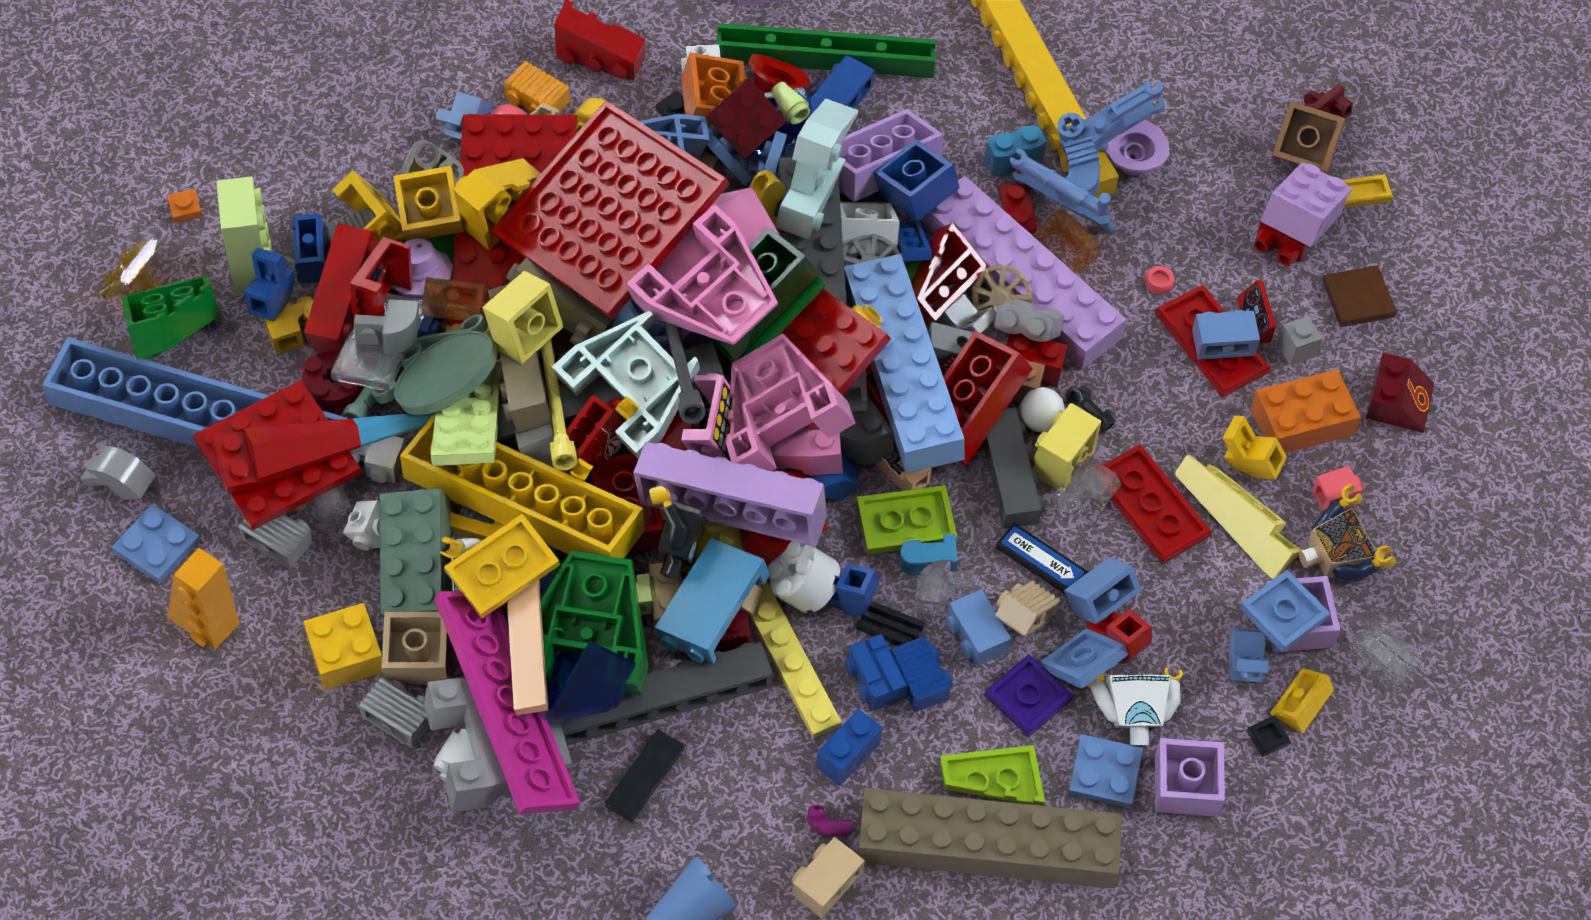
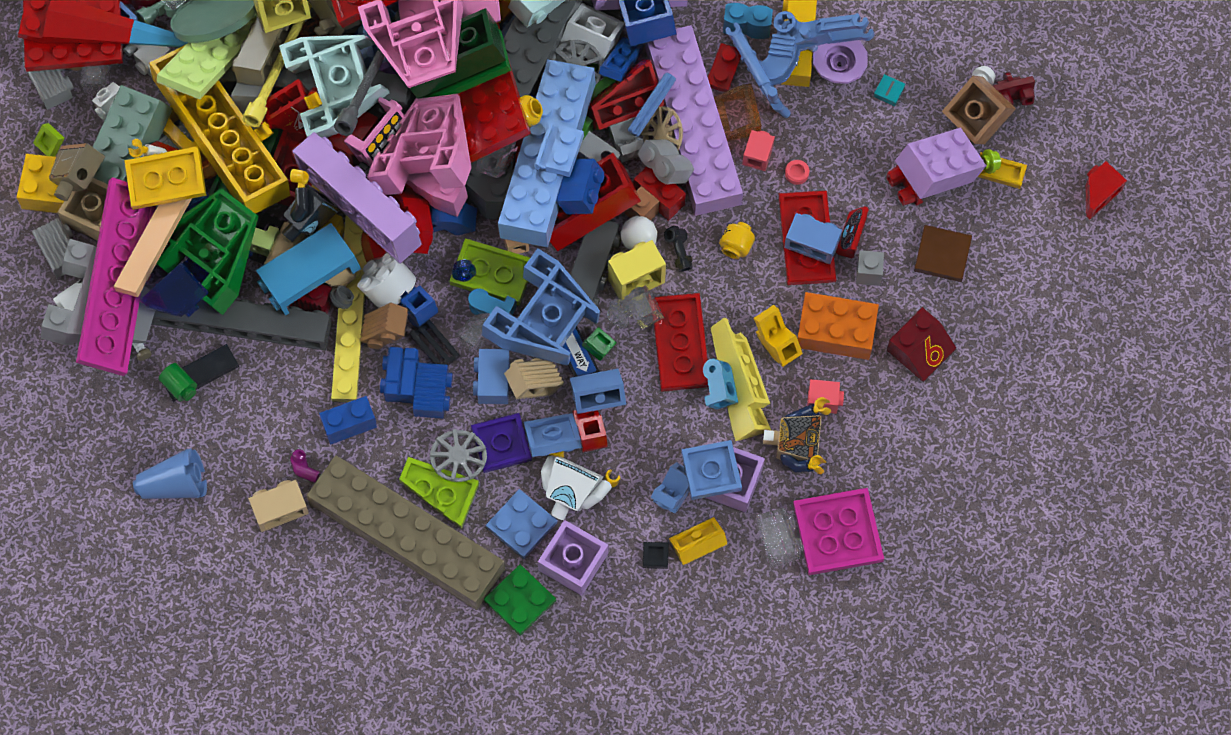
camera: 30 degrees right, 10 degrees up
(315, 598) = (48, 140): none -> lime plate
(379, 606) = (74, 168): none -> dark tan torso
(633, 793) = (178, 382): none -> green brick
(763, 617) = (341, 297): none -> dark grey plate
(829, 625) = (384, 325): none -> medium nougat brick
(880, 528) = (463, 270): none -> clear blue plate
(924, 347) = (559, 150): none -> light blue plate
(966, 377) = (580, 190): none -> blue brick
(977, 269) = (651, 104): none -> medium blue axle
(995, 728) = (458, 455): none -> light grey wheel
(1011, 530) = (547, 317): none -> medium blue wedge
(1069, 543) = (599, 344): none -> green tile
(1109, 273) = (758, 150): none -> coral brick
(1145, 373) = (737, 240): none -> yellow head
(1156, 853) = (520, 600): none -> green plate
(1200, 160) = (889, 90): none -> teal tile
(1226, 524) = (720, 384): none -> dark azure leg
(1281, 105) = (986, 72): none -> white plate
(1355, 180) = (992, 160): none -> lime plate
(1442, 620) = (838, 531): none -> dark pink plate
(1472, 164) = (1101, 187): none -> red slope

